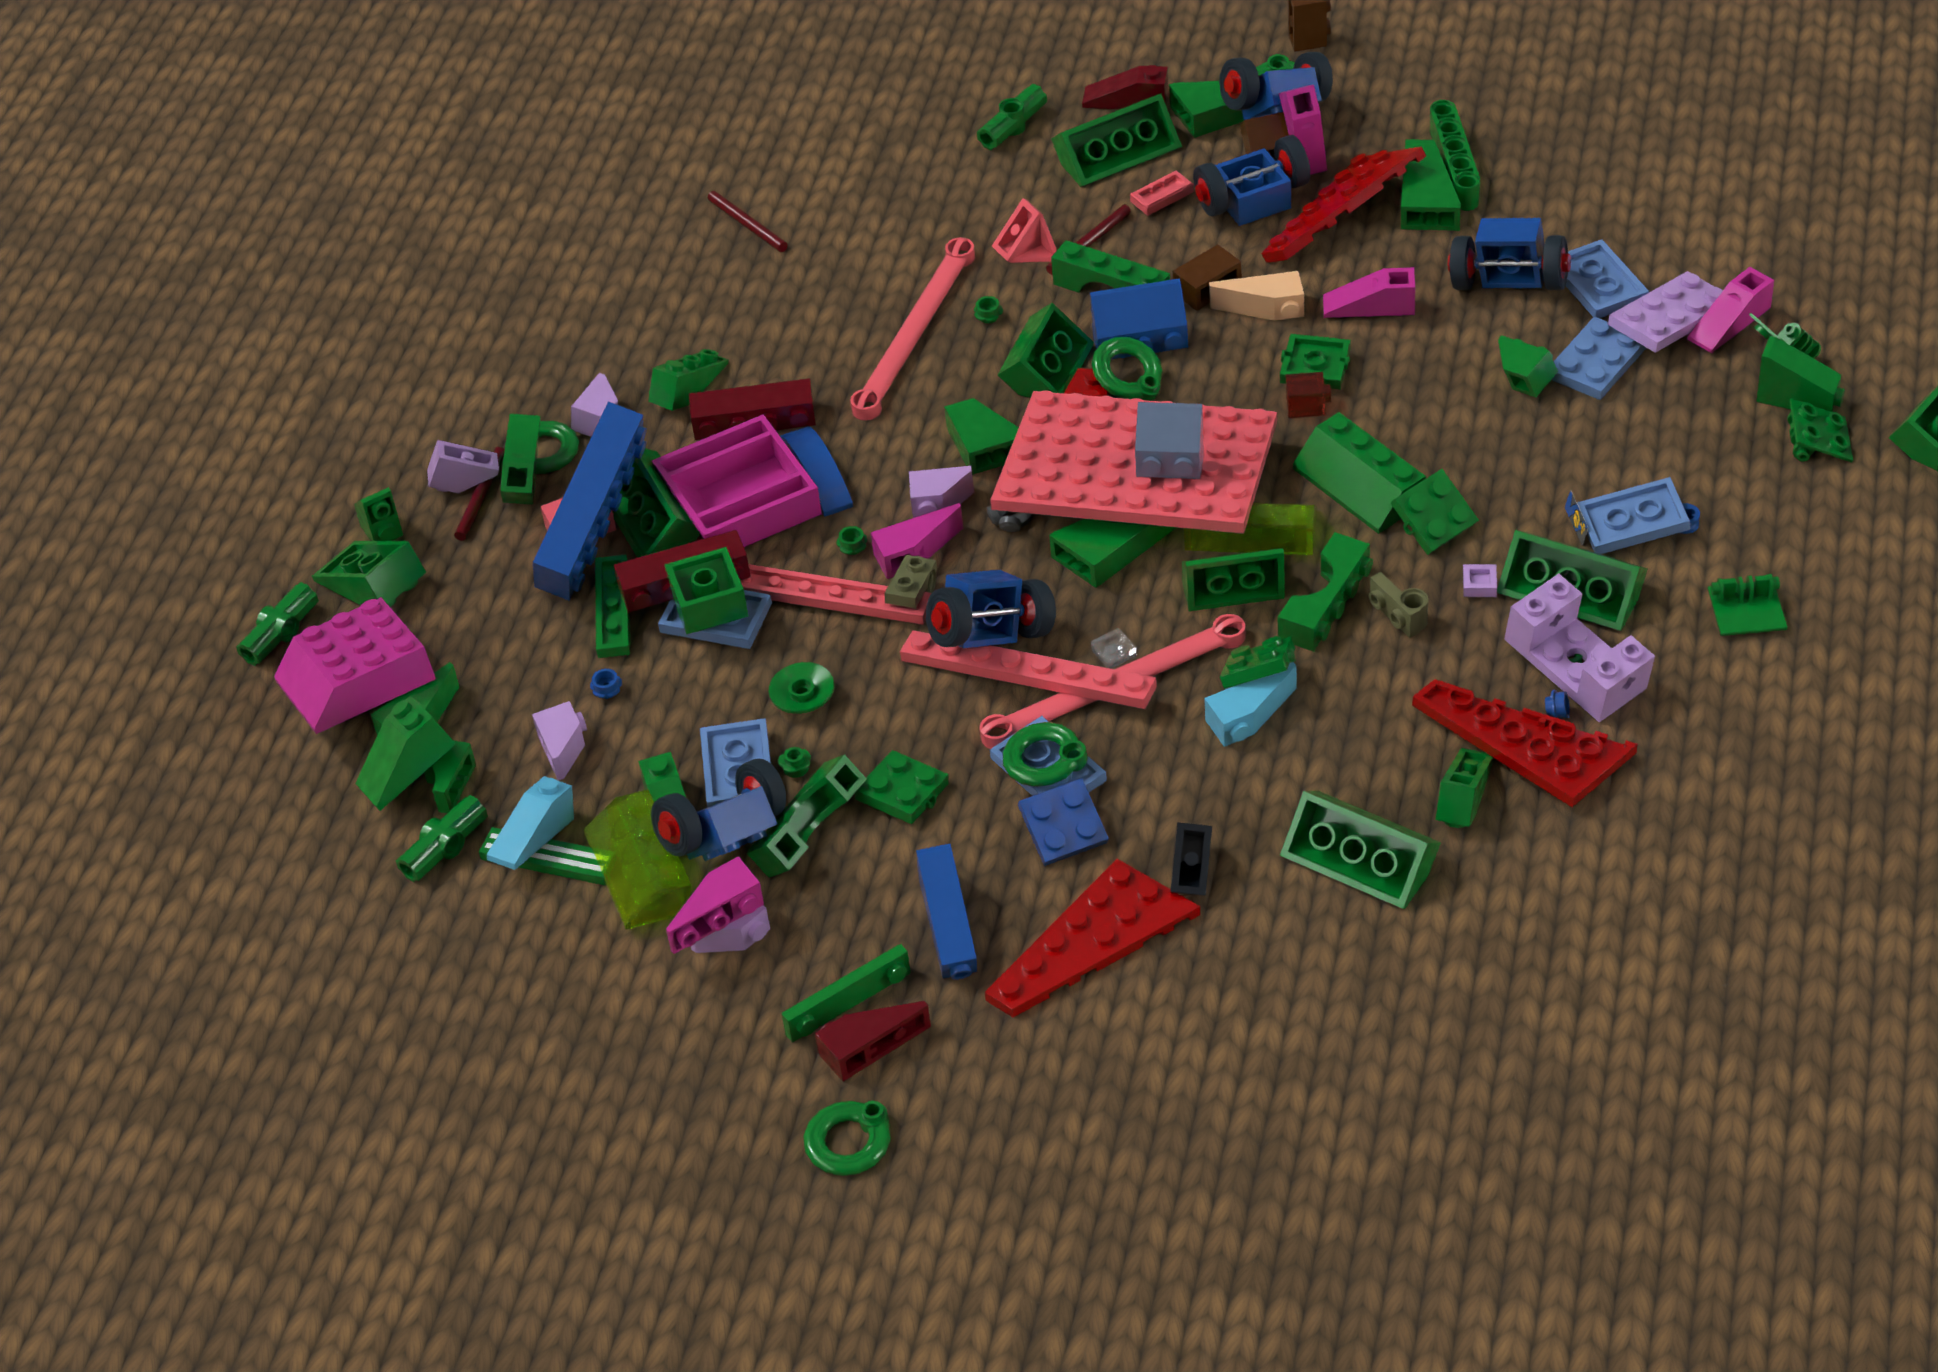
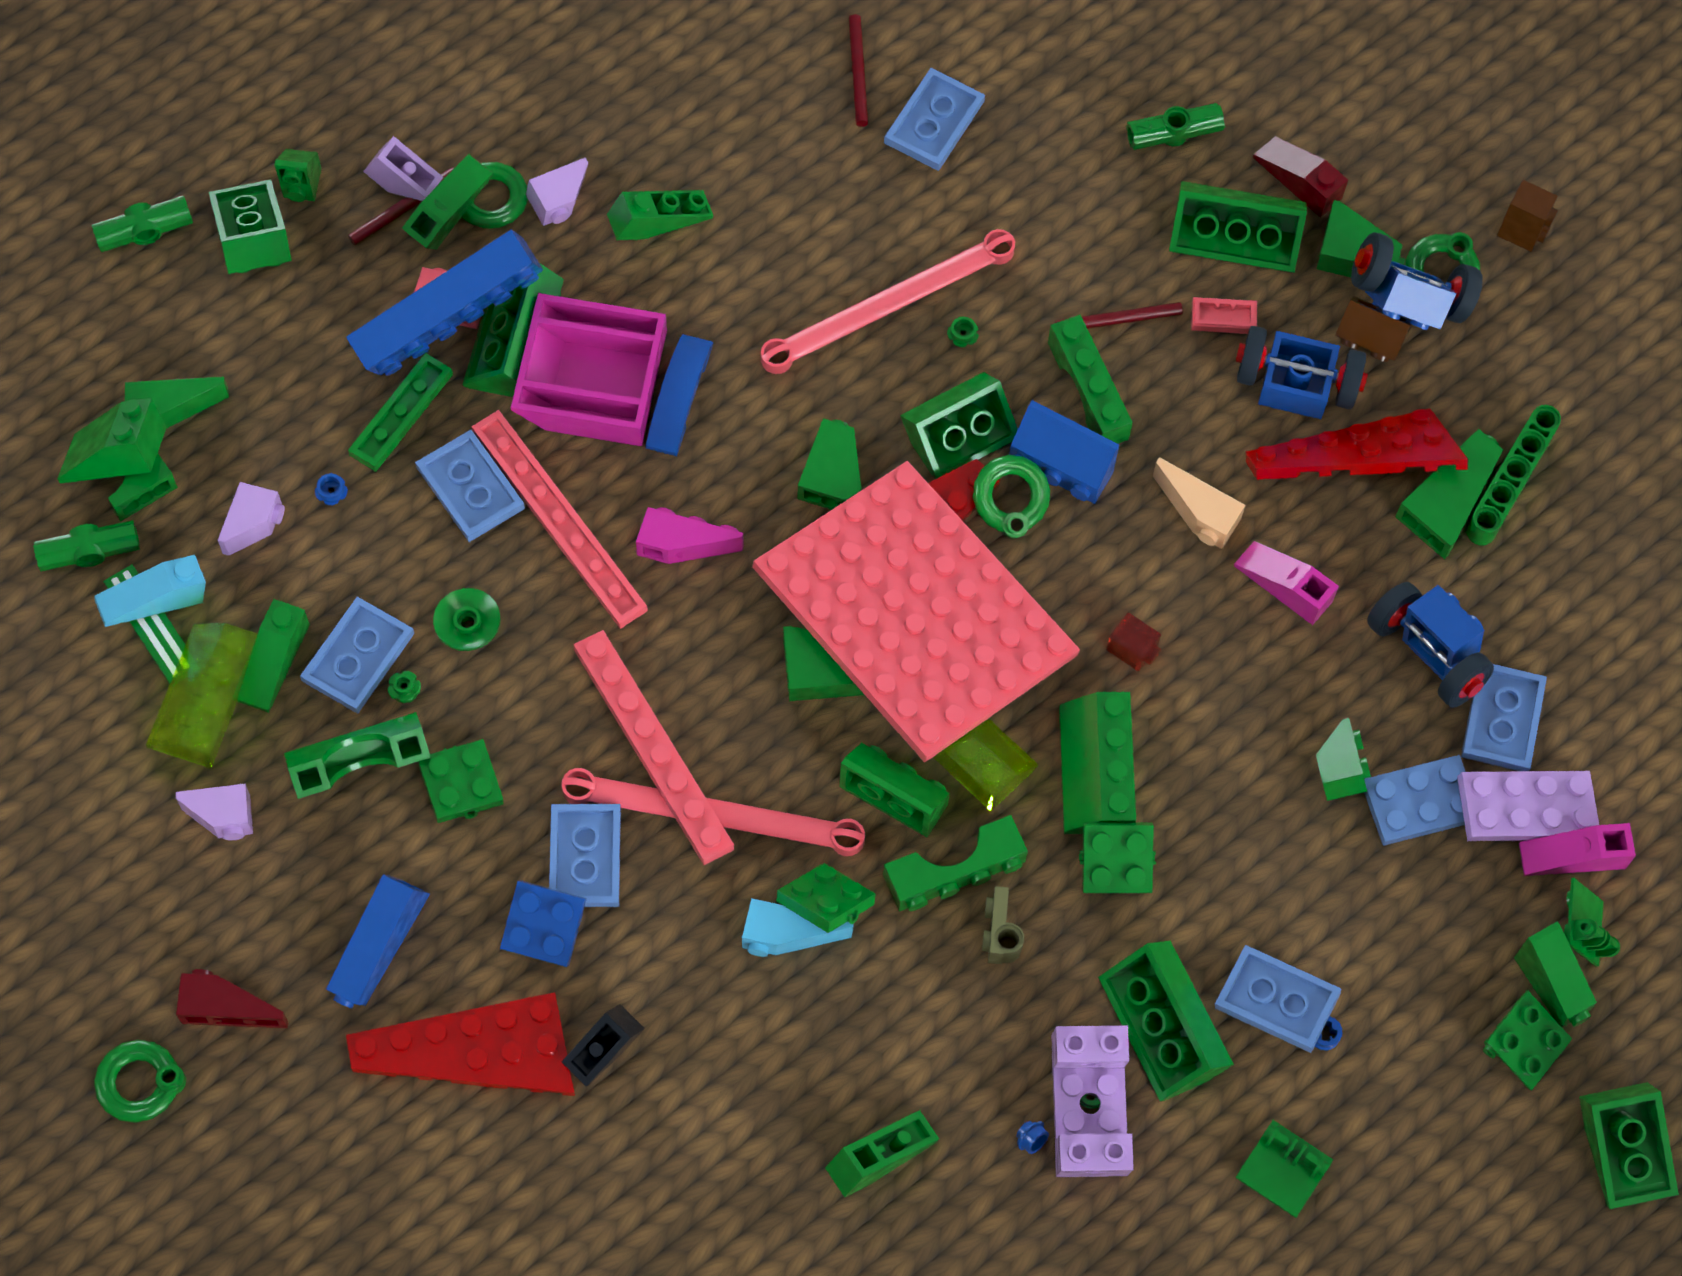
camera: 30 degrees right, 20 degrees up
(352, 665) = (152, 321): dark pink slope -> none
(645, 580) = (468, 428): dark red brick -> none
(706, 590) = (463, 467): green slope -> none
(717, 901) = (211, 791): dark pink slope -> none
(724, 824) = (280, 716): brick -> none
(782, 403) = (678, 291): dark red brick -> none
(835, 212) = (934, 119): none -> medium blue plate
(846, 993) = (292, 952): green plate -> none
(851, 540) = (636, 488): green plate -> none
(911, 581) = (643, 580): olive plate -> none
(939, 488) = (746, 501): lavender slope -> none
(989, 609) = (655, 669): brick -> none
(1025, 236) = (1060, 277): coral slope -> none
(1072, 754) = (583, 874): green piece -> none
(1113, 648) = (739, 780): clear plate -> none
(1169, 440) = (931, 629): sand blue slope -> none
(1208, 267) = (1176, 441): reddish brown brick -> none
(1304, 122) = (1393, 350): dark pink slope -> none
(1316, 354) = (1177, 610): green plate -> none
(1359, 848) = (744, 1143): green slope -> none
(1479, 580) = (1091, 957): lavender plate -> none
(1529, 742) = (976, 1164): red wing -> none
(1576, 517) = (1233, 958): sticker -> none

